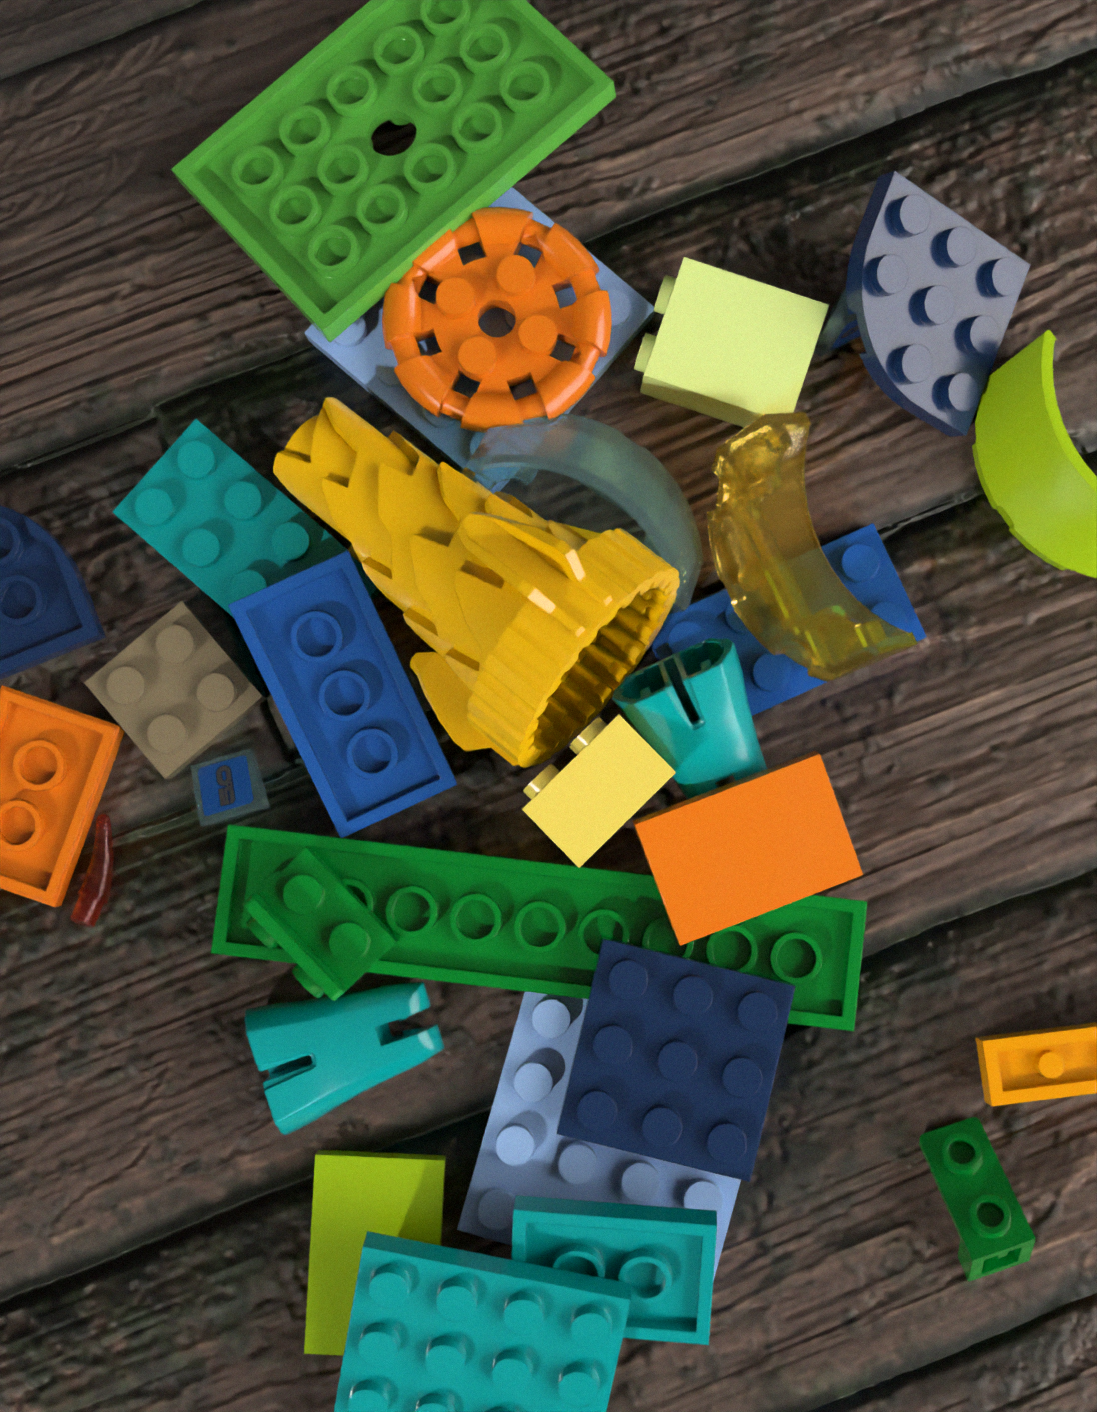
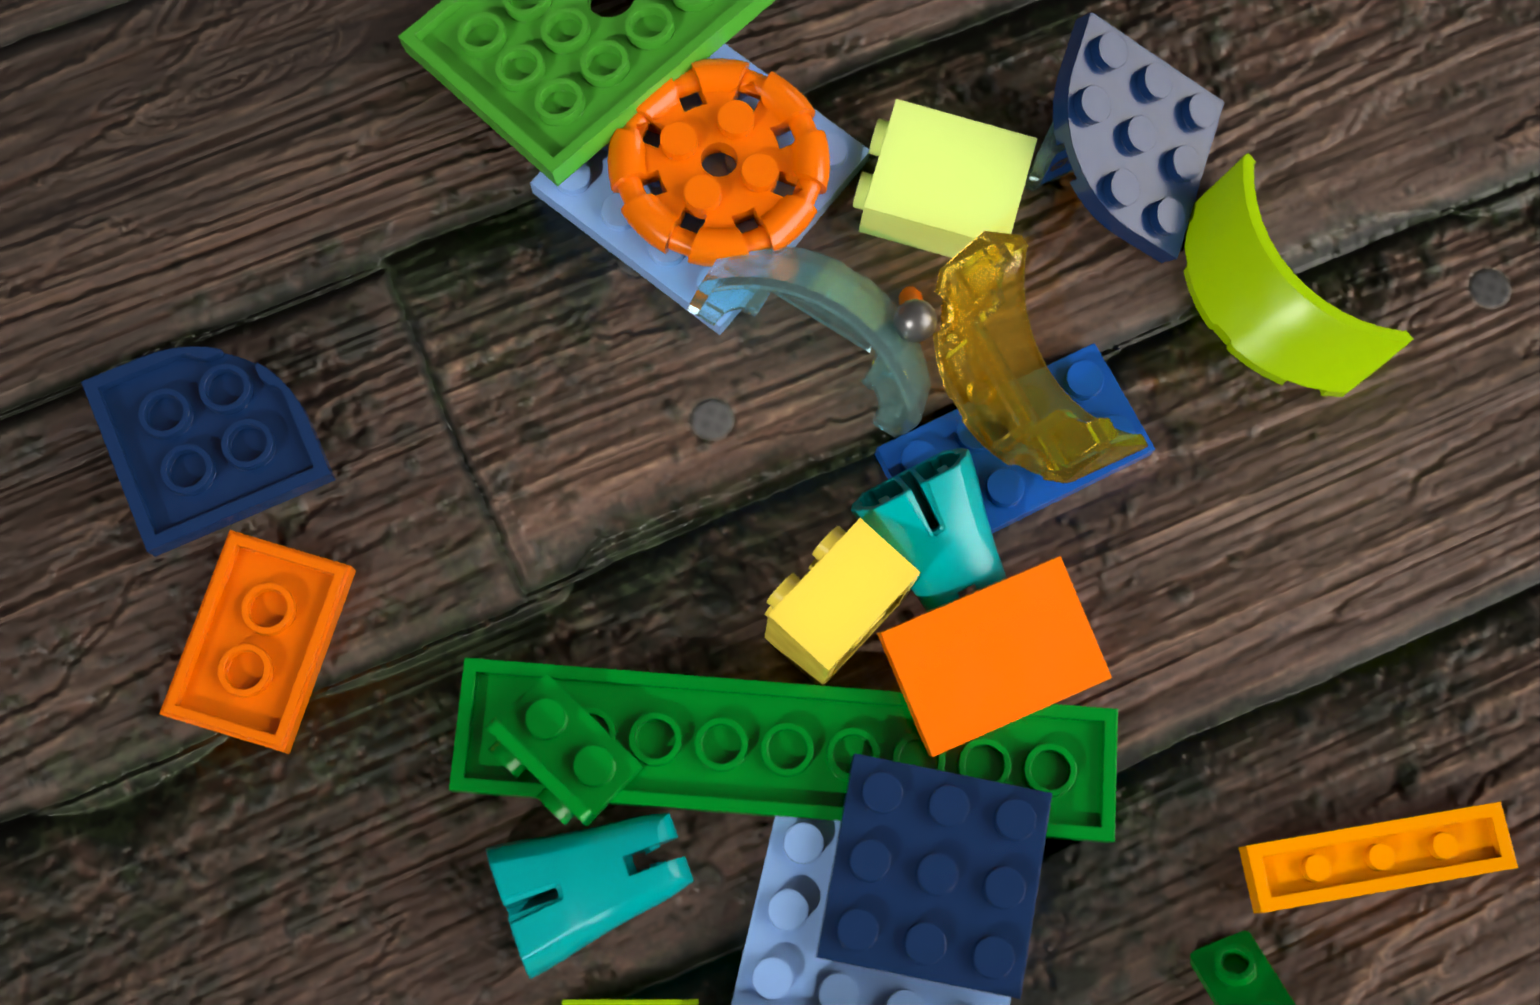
camera: 10 degrees left, 10 degrees down
(98, 879) = (328, 725): clear red helmet -> none
(175, 690) = (407, 530): dark tan plate -> none
(224, 520) = (480, 389): teal plate -> none
(228, 788) = (463, 625): slope -> none
(343, 693) = (580, 521): blue plate -> none
(520, 609) = (747, 414): yellow cone -> none
(689, 496) = (914, 318): none -> flat silver piece

